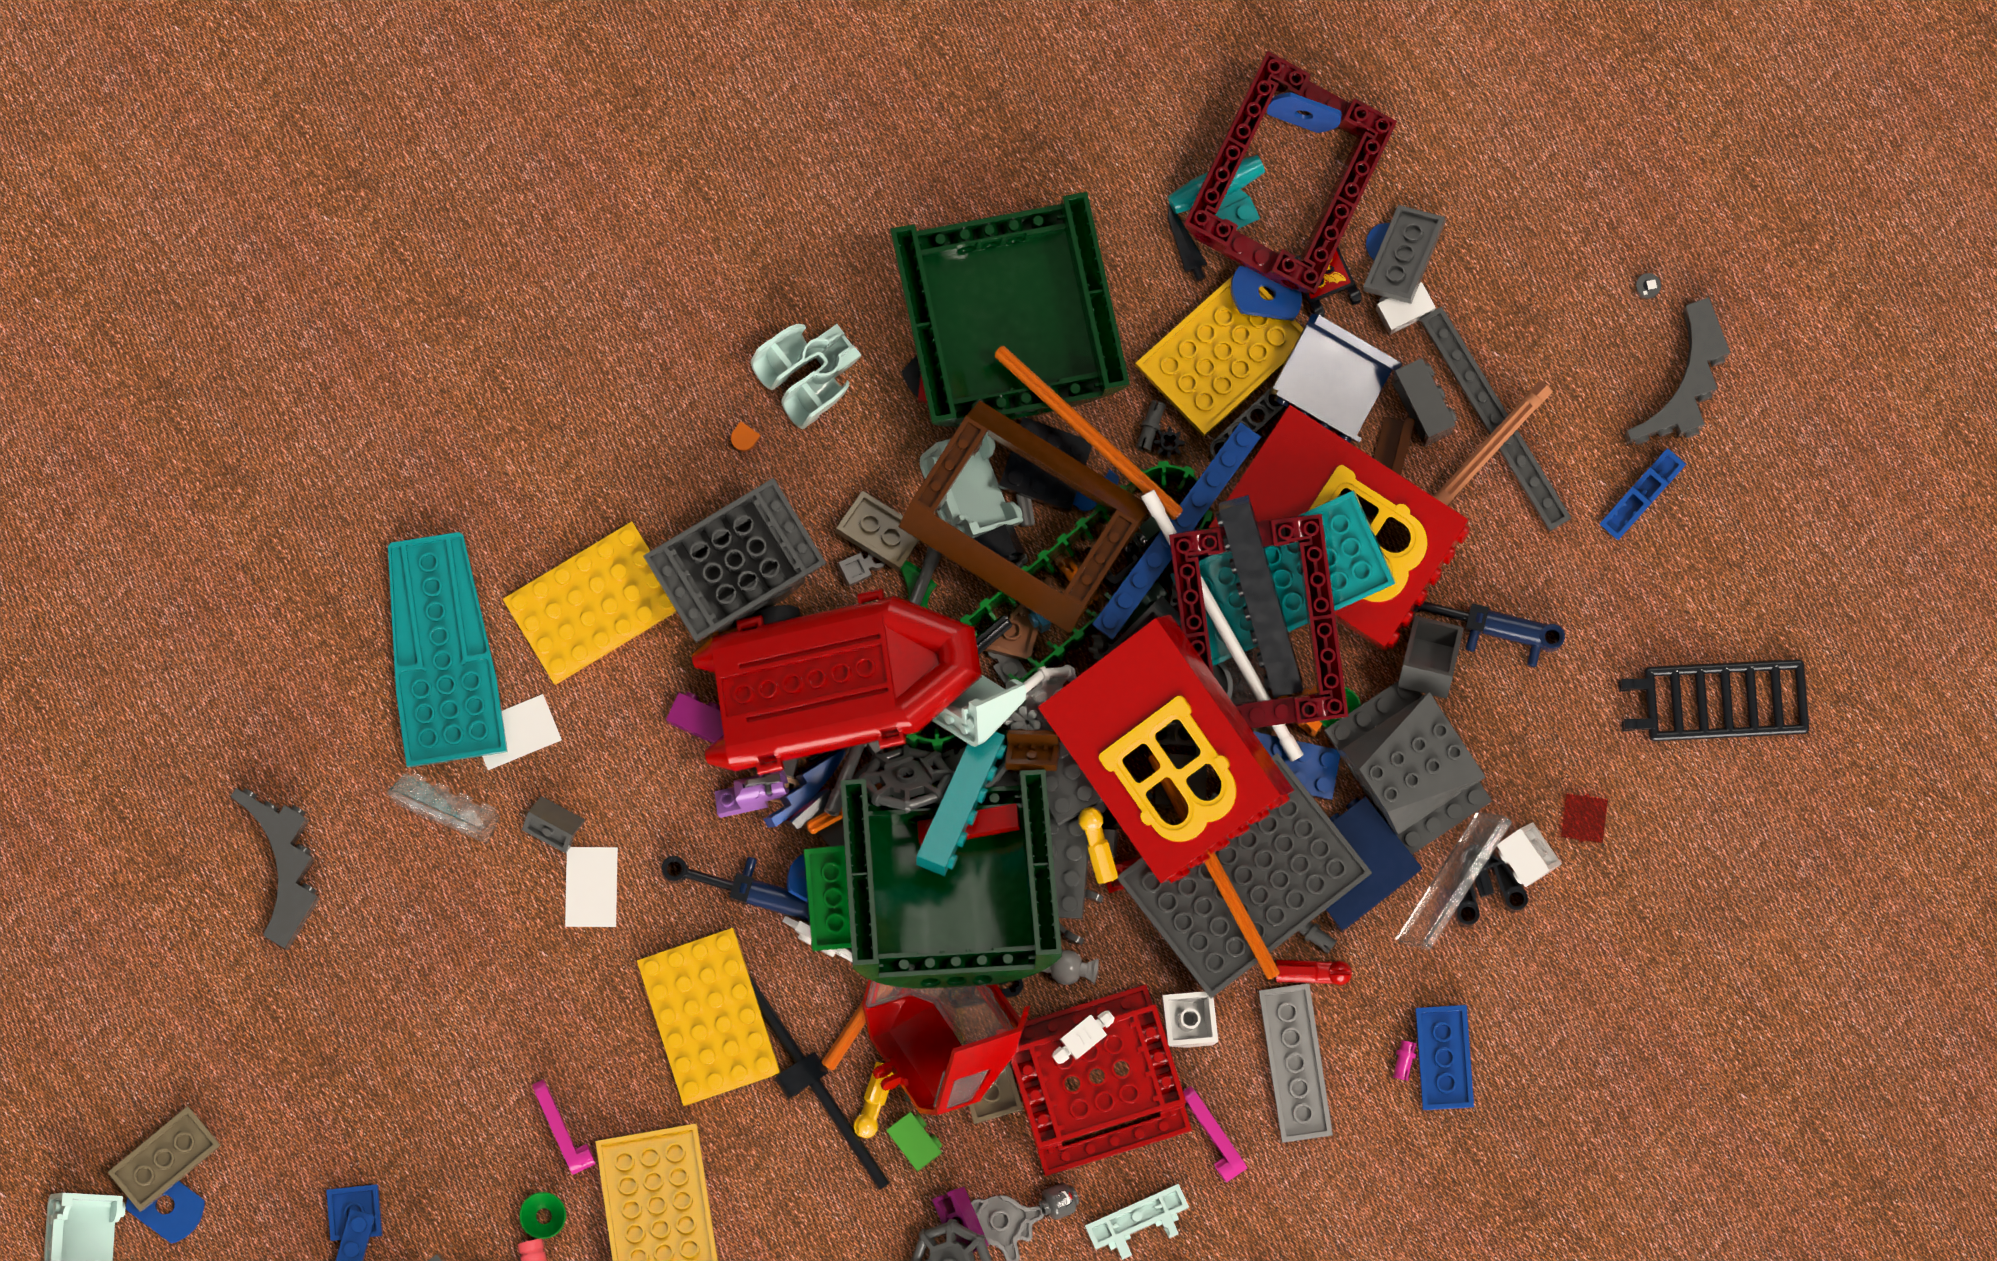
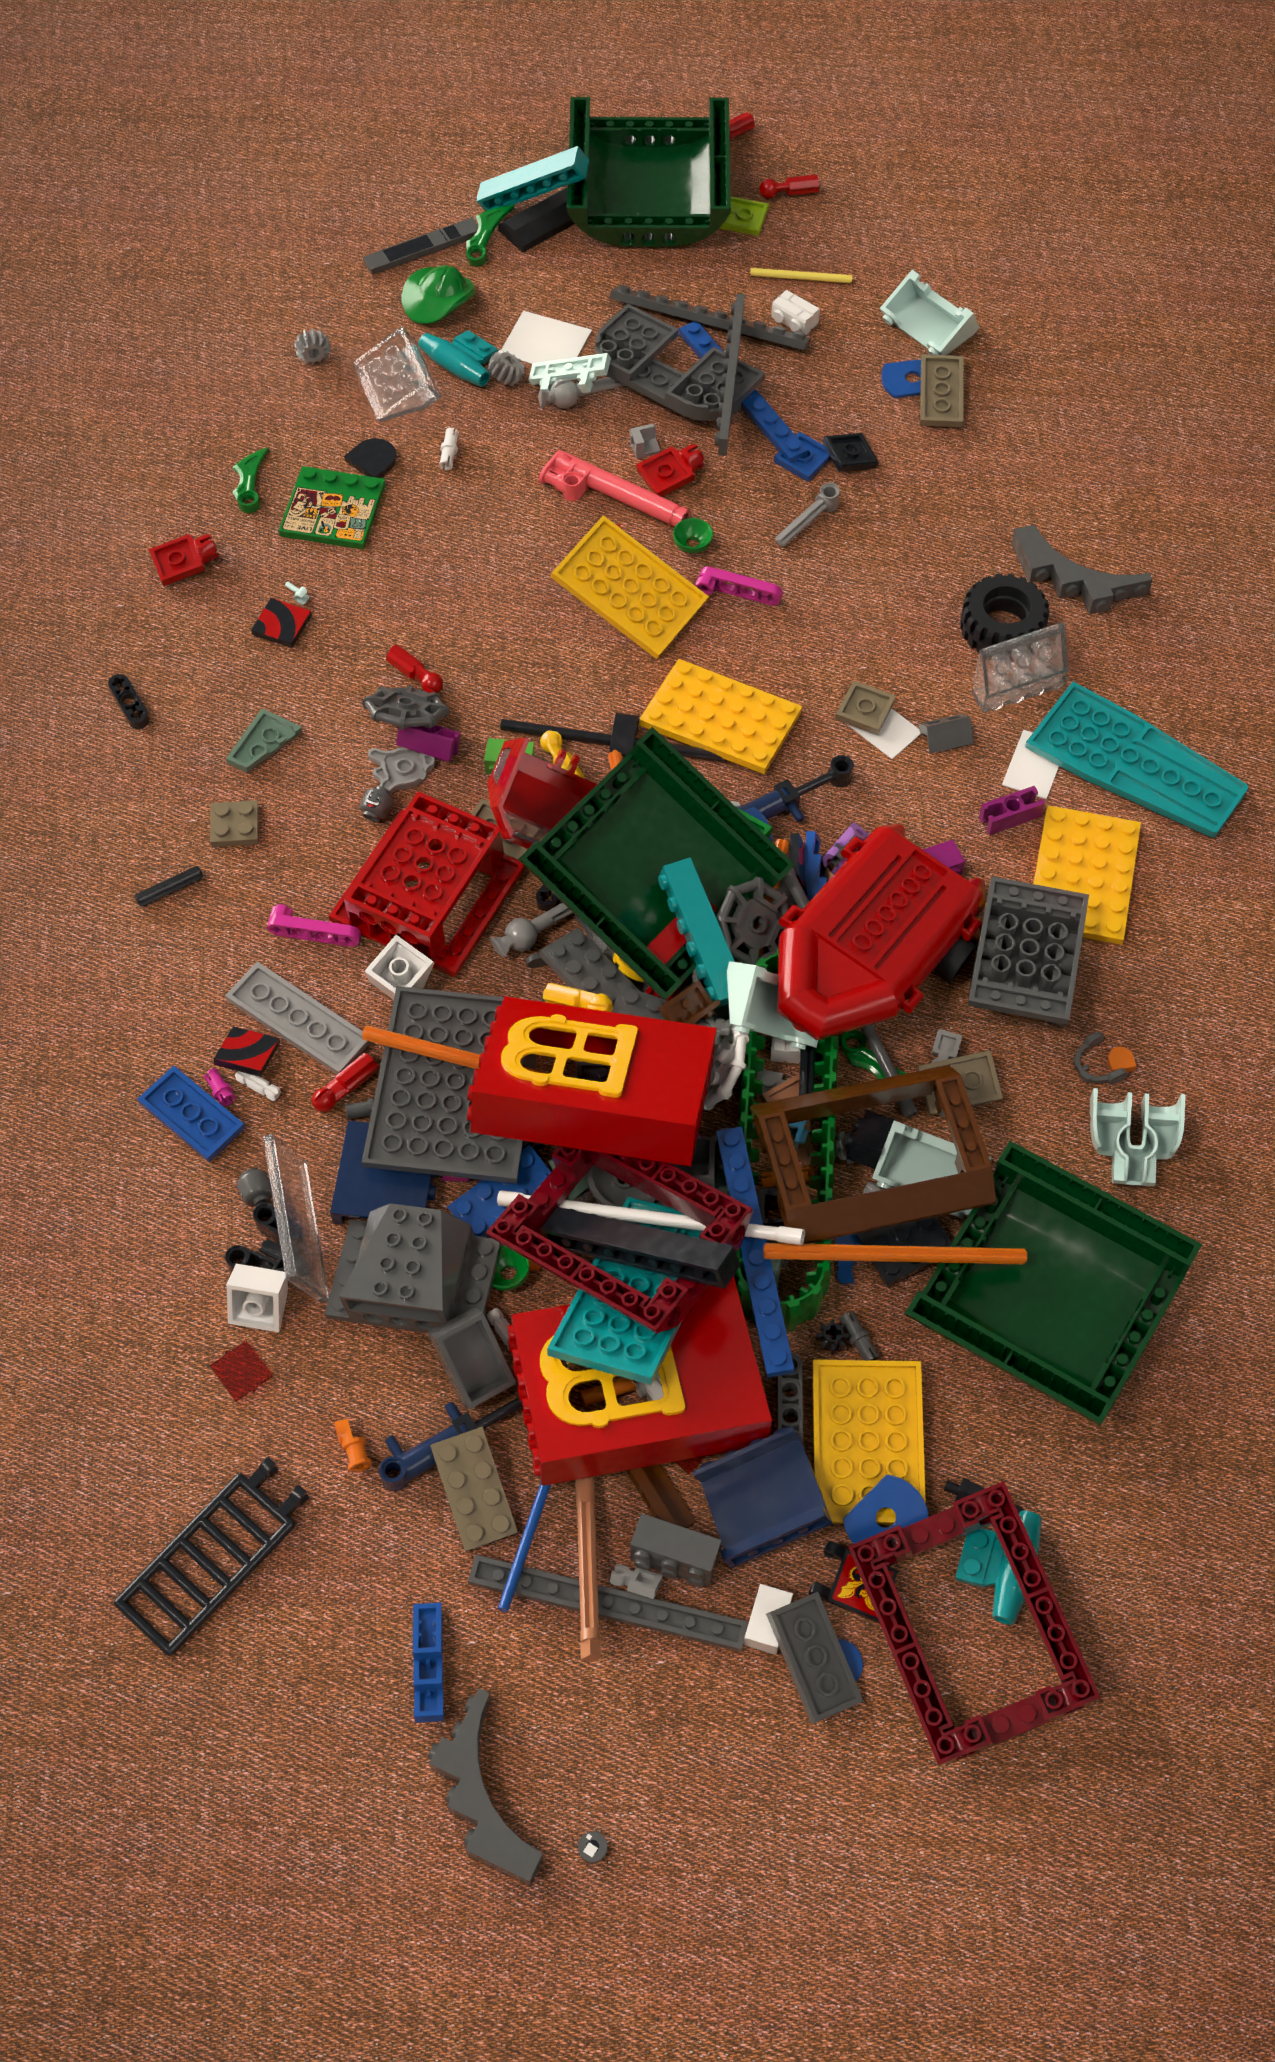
camera: 135 degrees right, 20 degrees down
(314, 1173) = (850, 452): none -> black tile
(367, 850) = (1007, 595): none -> black tyre
(425, 1141) = (825, 501): none -> light grey axle
(582, 695) = (1002, 809): none -> magenta piece
(590, 908) = (865, 707): none -> dark tan plate
(766, 430) = (1112, 1078): none -> dark grey piece
(1083, 1037) = (456, 868): white piece -> none
(1156, 1209) = (319, 827): light aqua hinge -> none
(1321, 119) = (1016, 1687): blue piece -> none
(1359, 1070) = (246, 1051): none -> black tile
(1373, 1036) = (259, 1085): none -> white axle
(1380, 670) = (496, 1318): none -> white axle
(1452, 948) = (254, 1187): none -> dark grey head
(1464, 410) = (638, 1581): none -> light grey plate
(1510, 573) = (473, 1489): none -> dark tan plate
(1519, 500) = (523, 1548): none -> blue bar
(1560, 681) = (353, 1446): none -> orange connector

